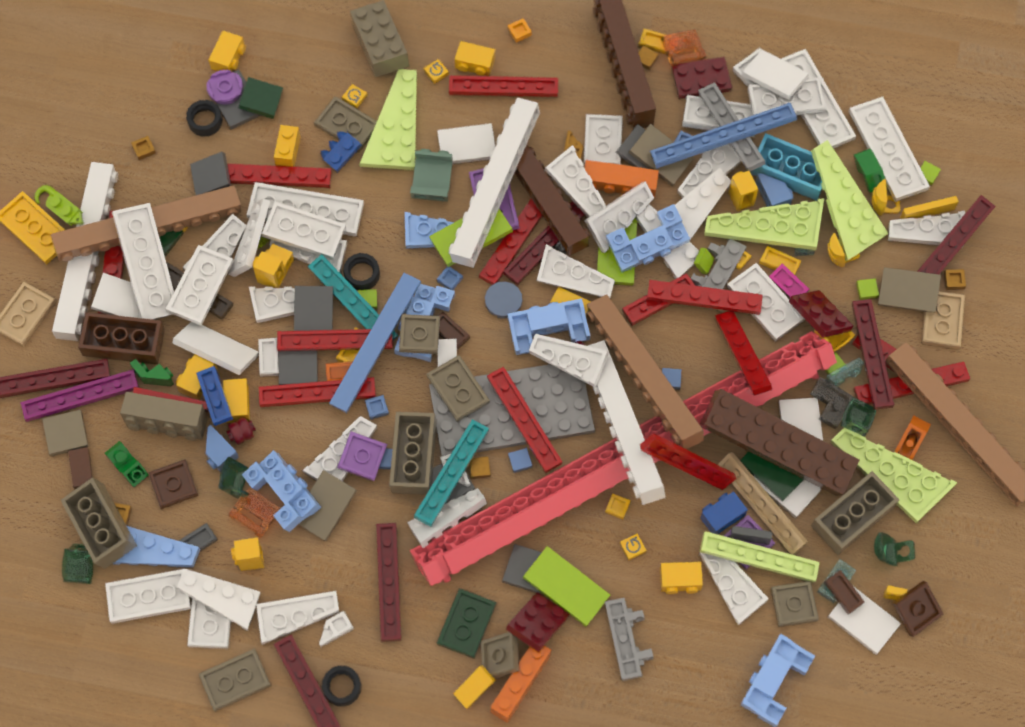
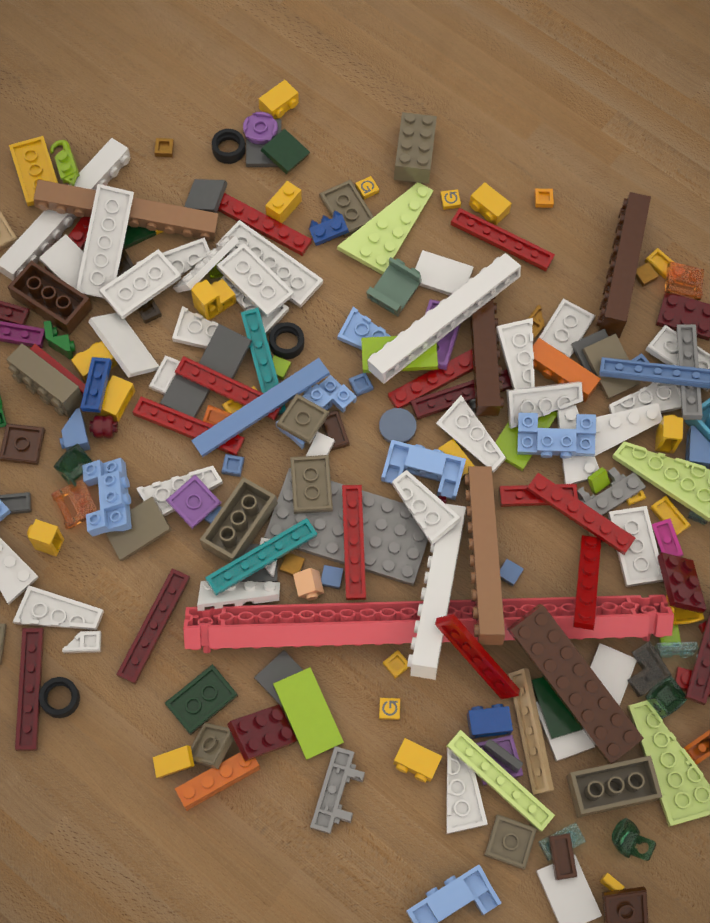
camera: 25 degrees right, 0 degrees up
(505, 476) = (308, 584): none -> light nougat brick

